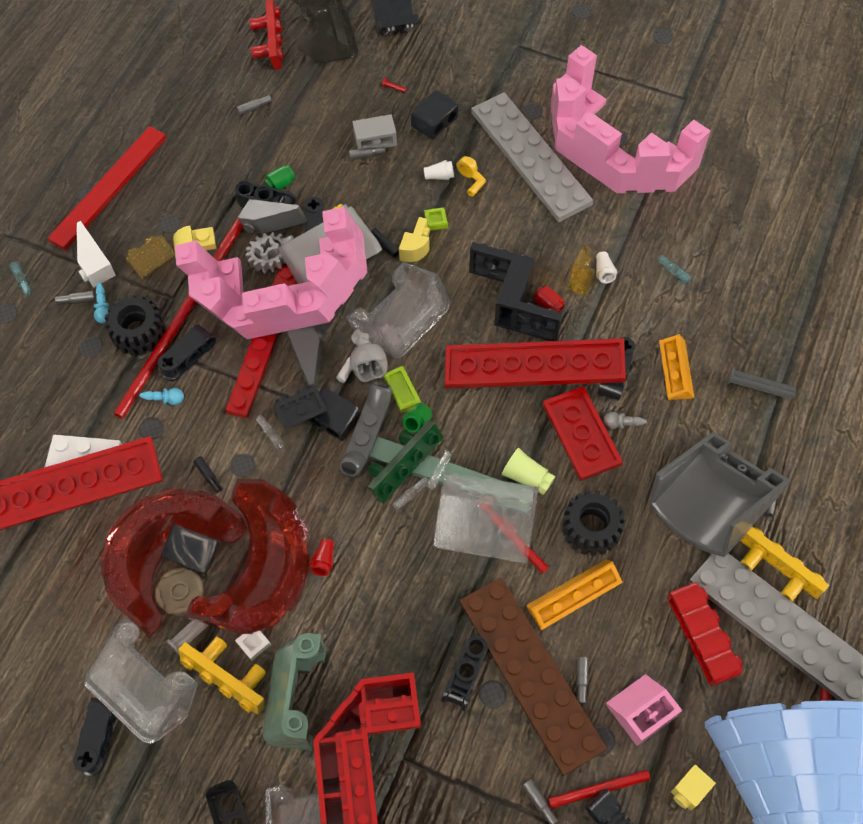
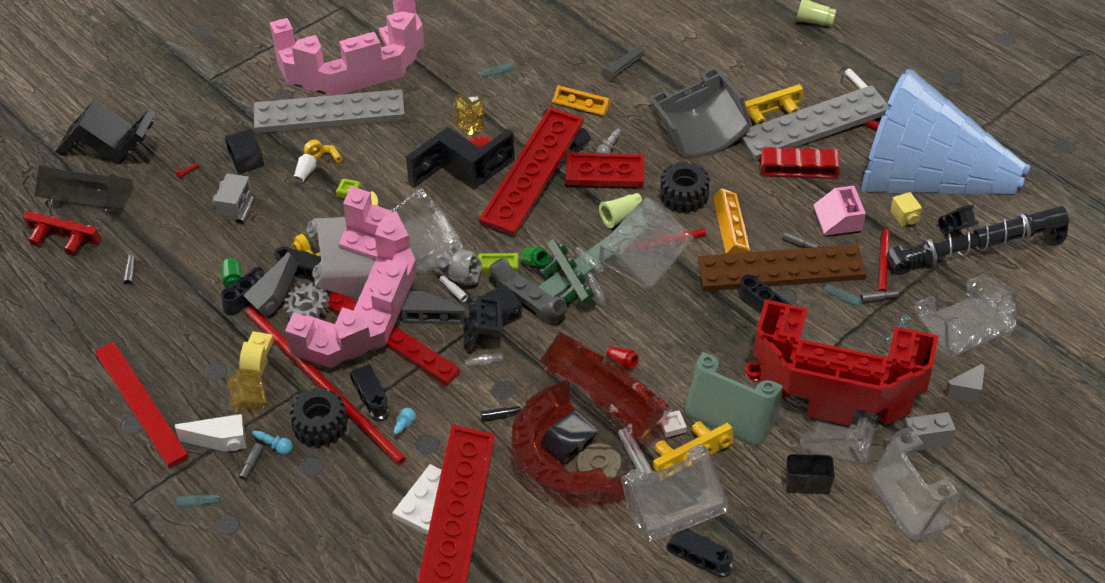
camera: 65 degrees left, 15 degrees down
(521, 759) = (844, 295): none -> clear light blue pin

